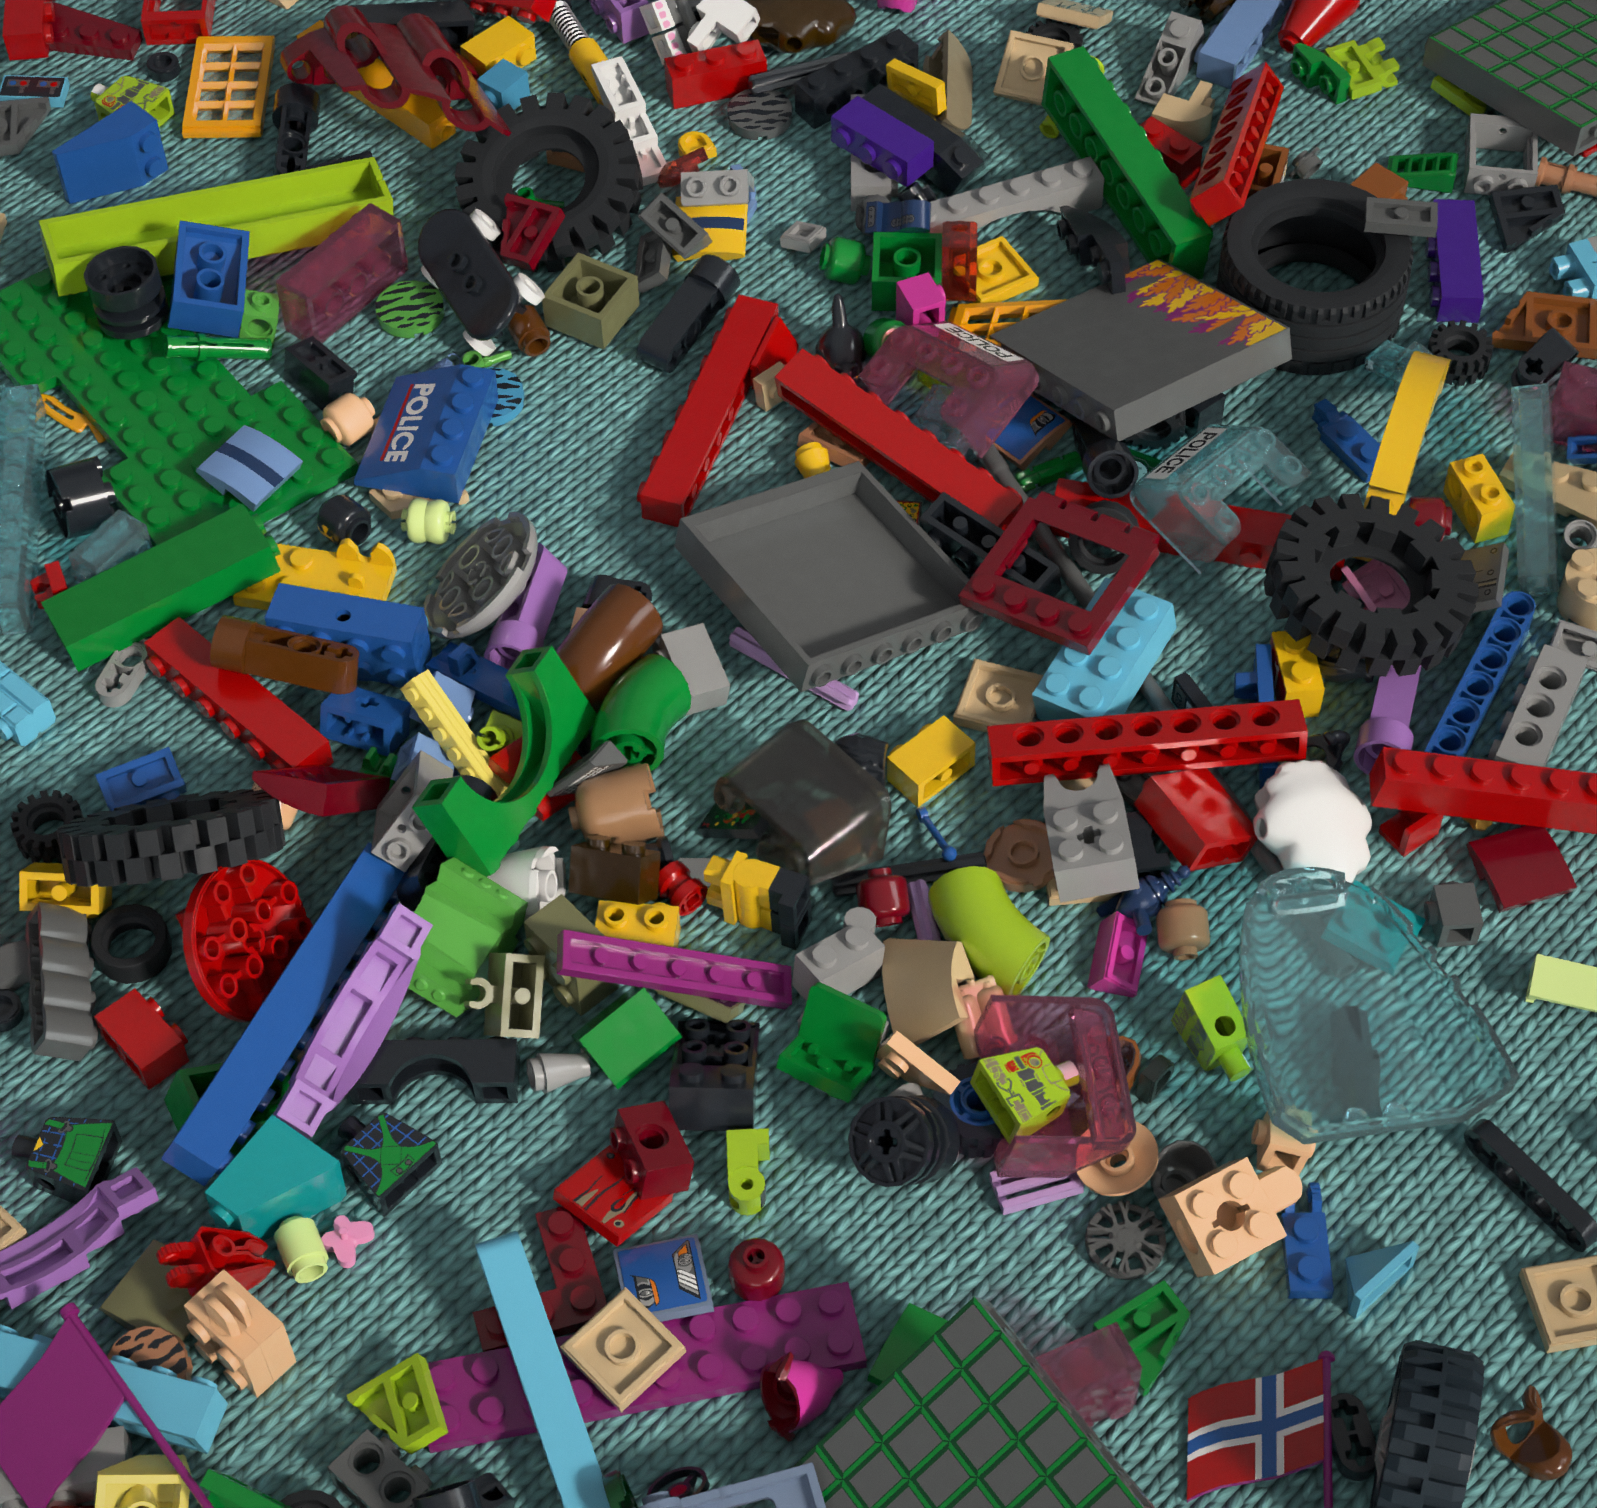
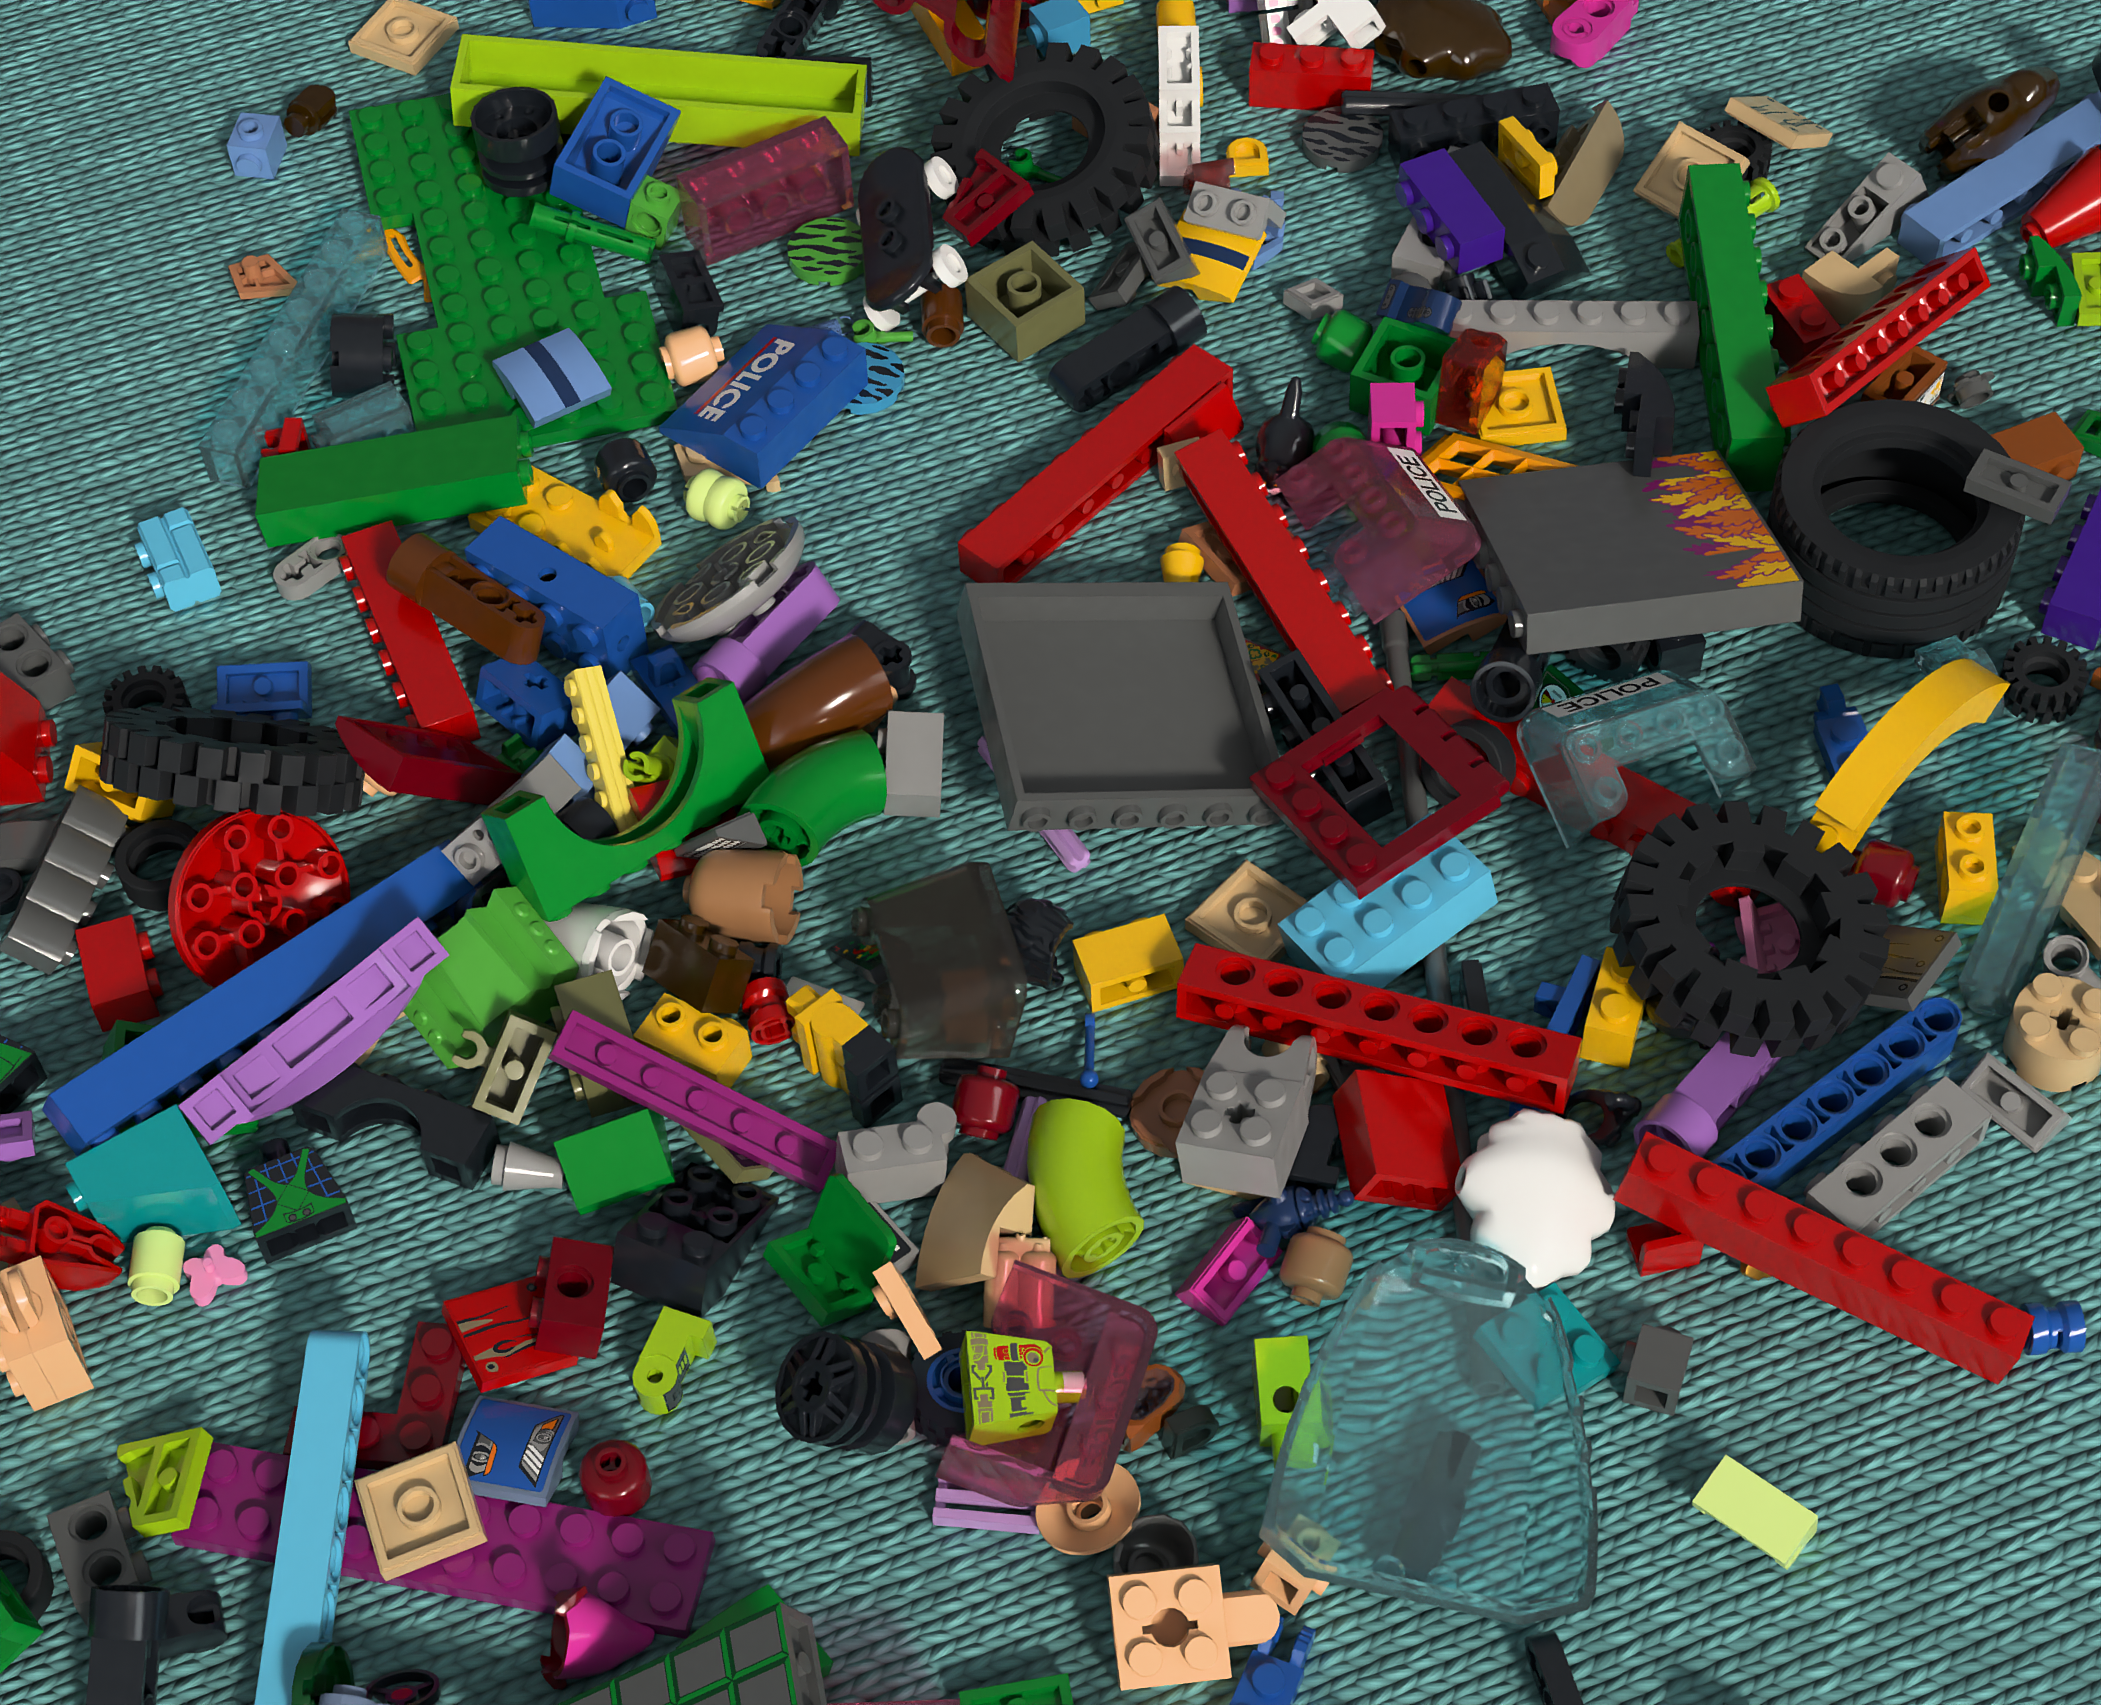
camera: 25 degrees right, 0 degrees up
(1125, 1240) = (1055, 1609): dark grey wheel -> none
(1521, 867) = (1775, 1341): dark red slope -> none

